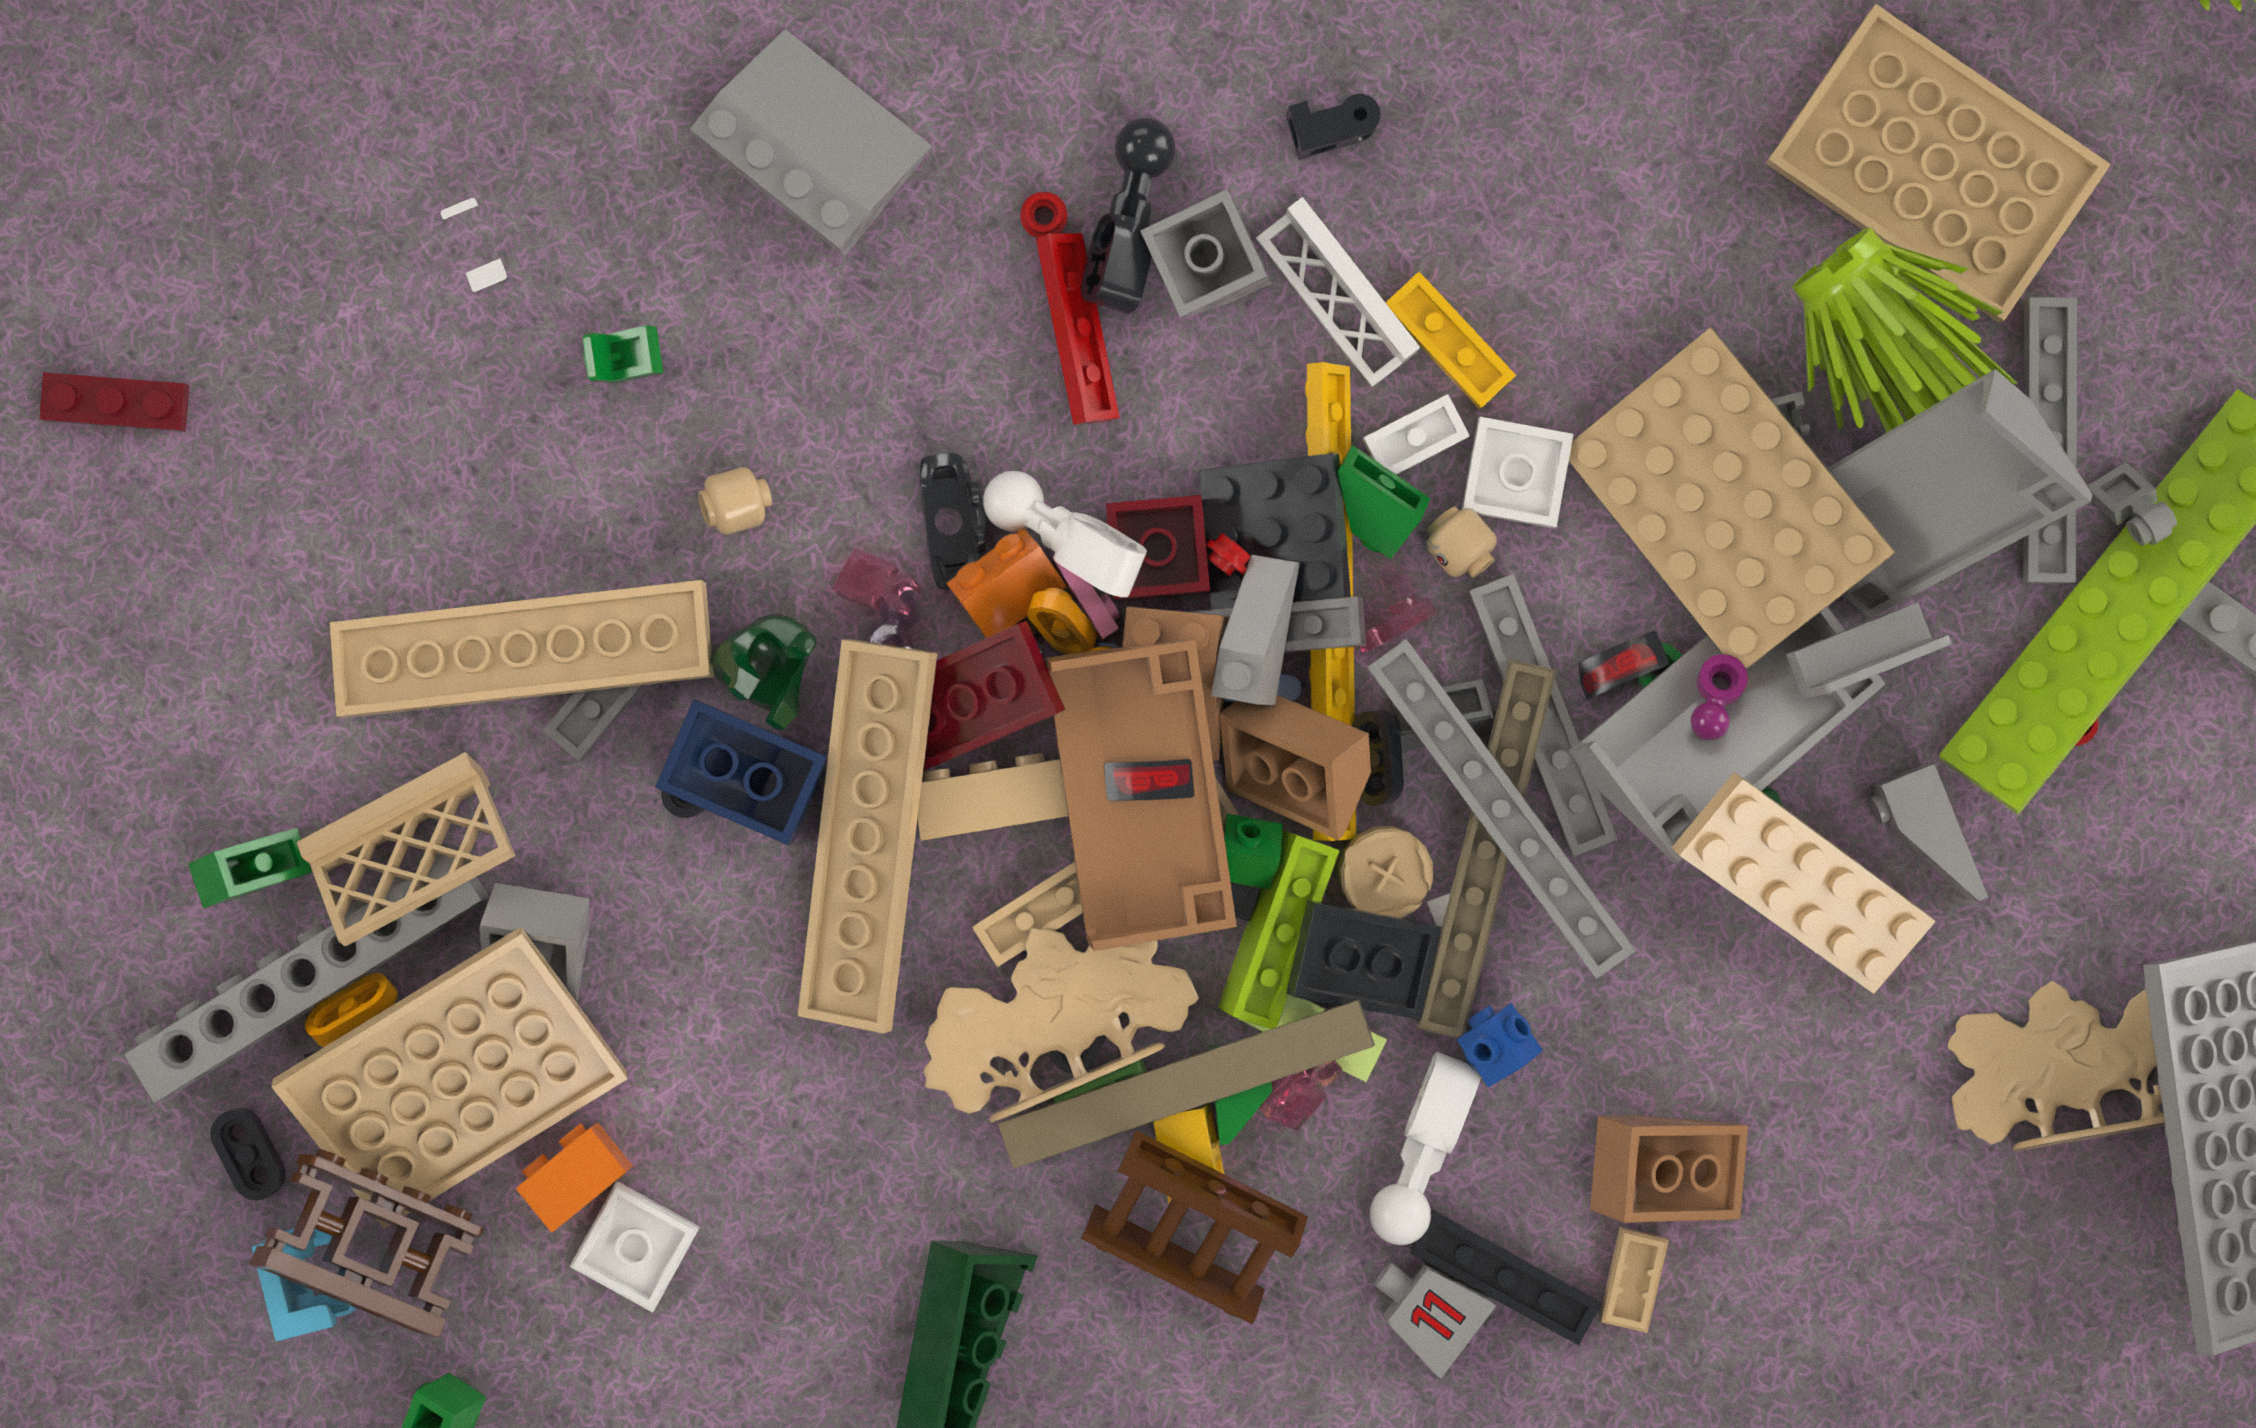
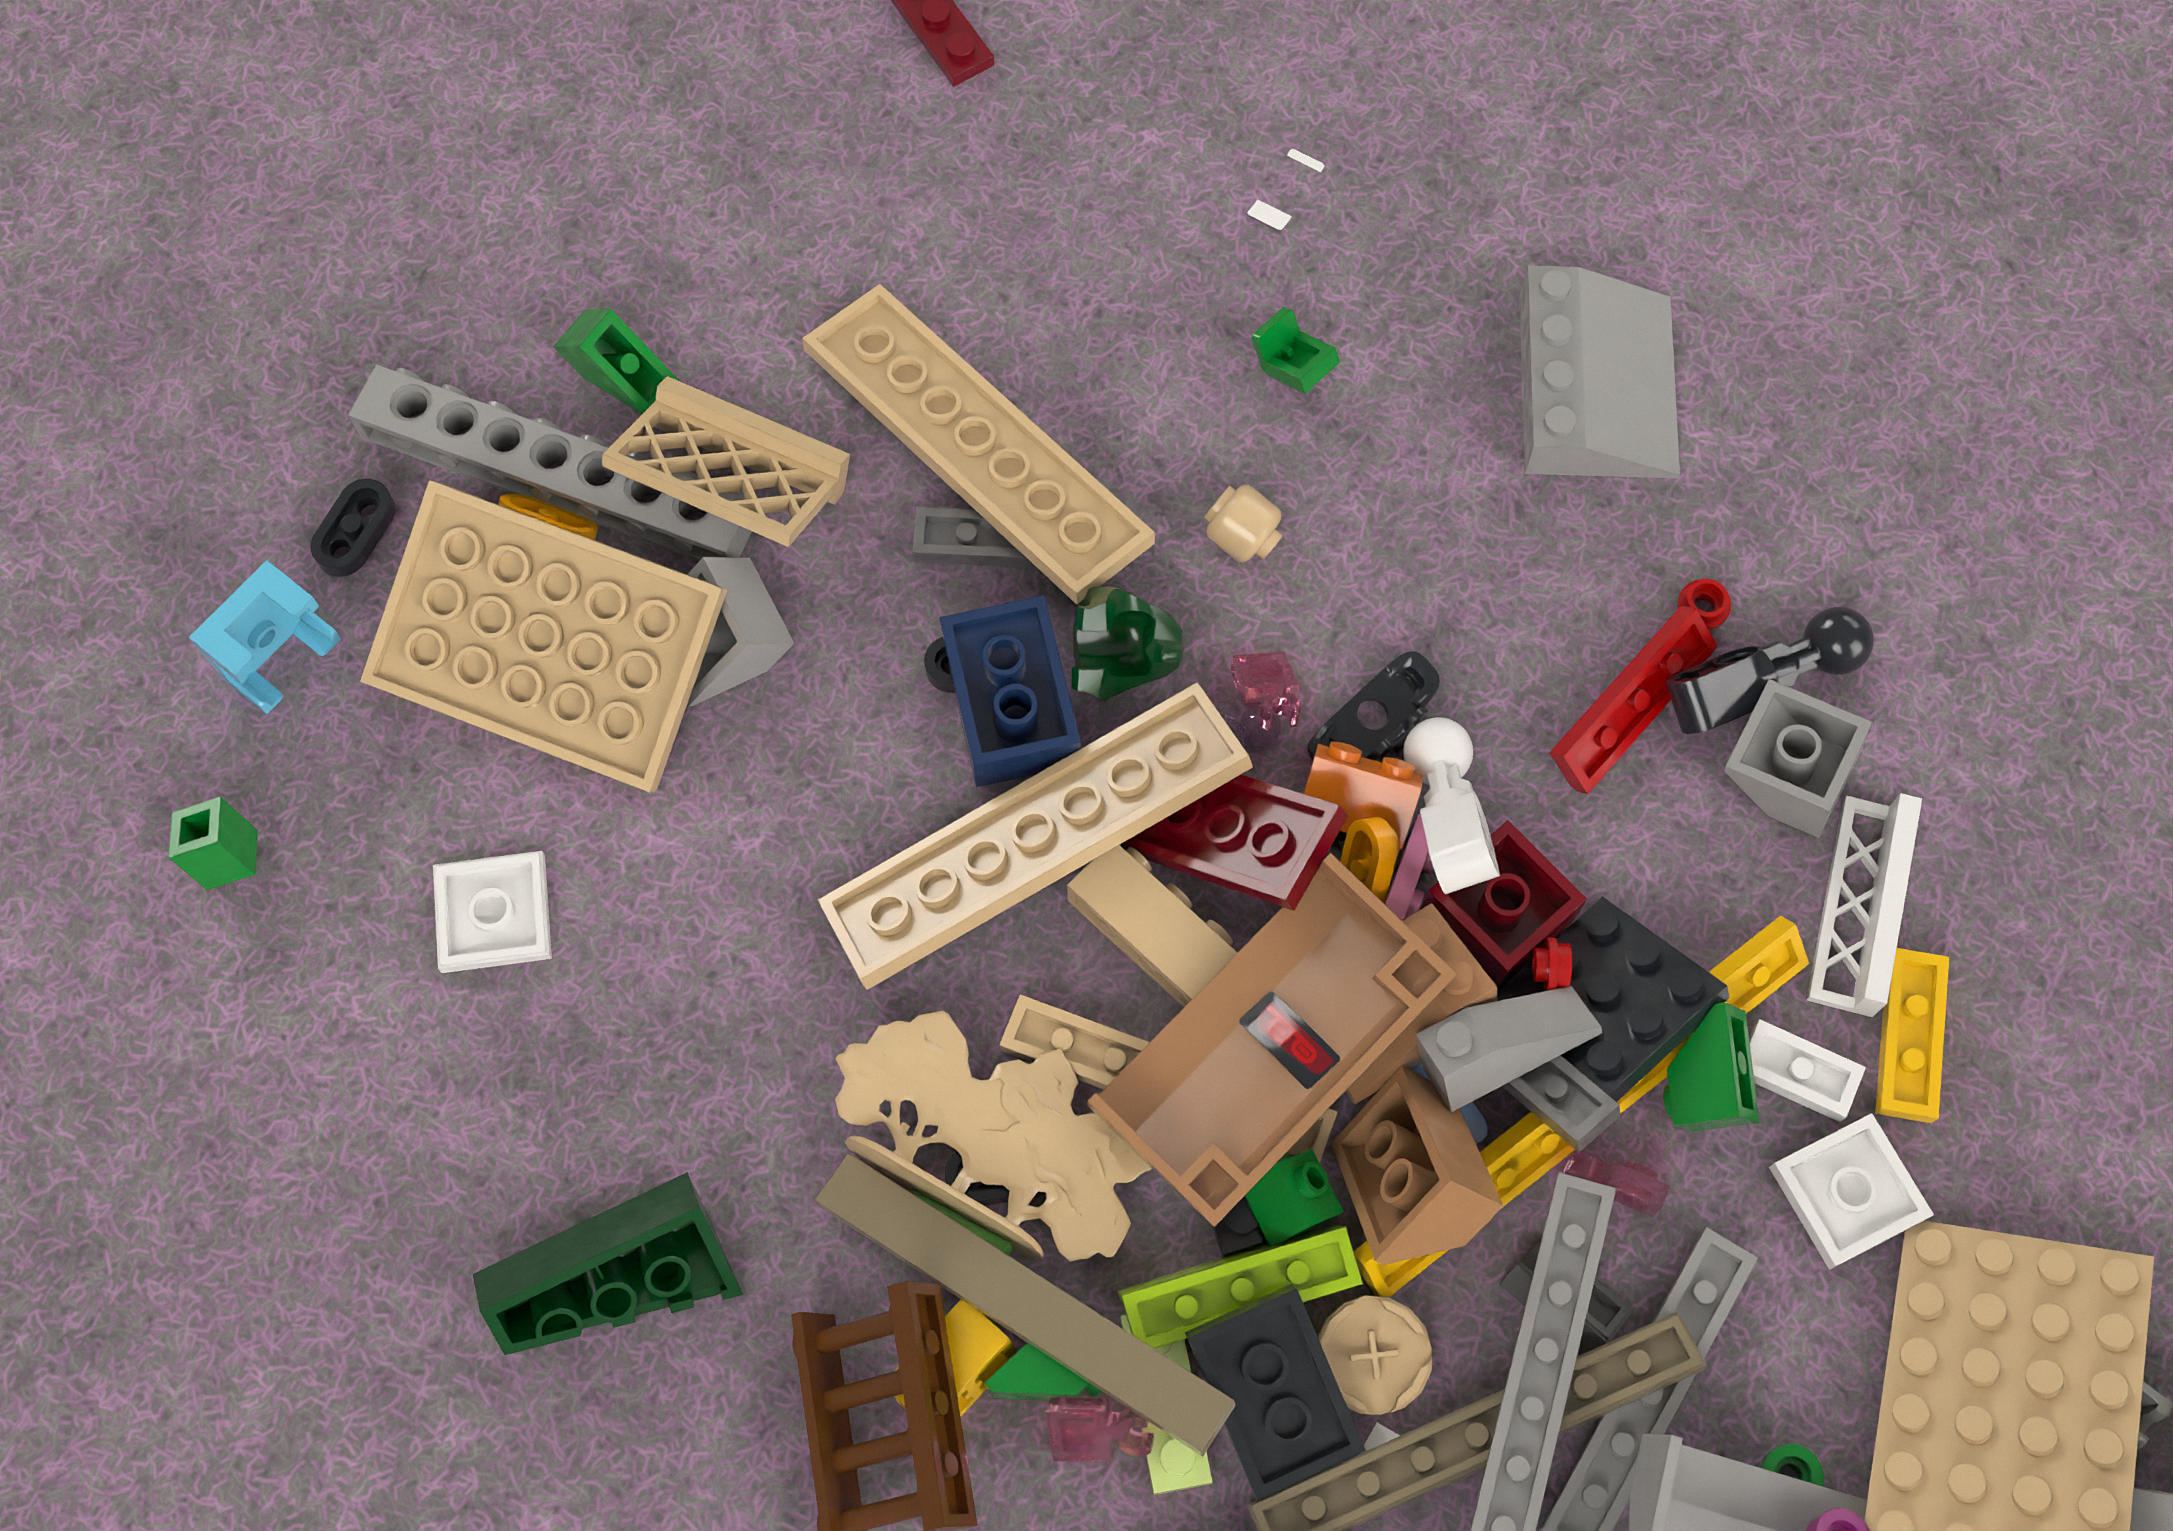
camera: 55 degrees right, 20 degrees down
(354, 1278) = (287, 666): fence -> none
(574, 1176) = (523, 807): orange brick -> none
(1332, 127) = (2003, 788): black leg -> none
(1384, 757) = (1467, 1272): black plate -> none
(1461, 542) = (1743, 1186): tan head -> none
(1621, 664) = (1763, 1435): sticker -> none

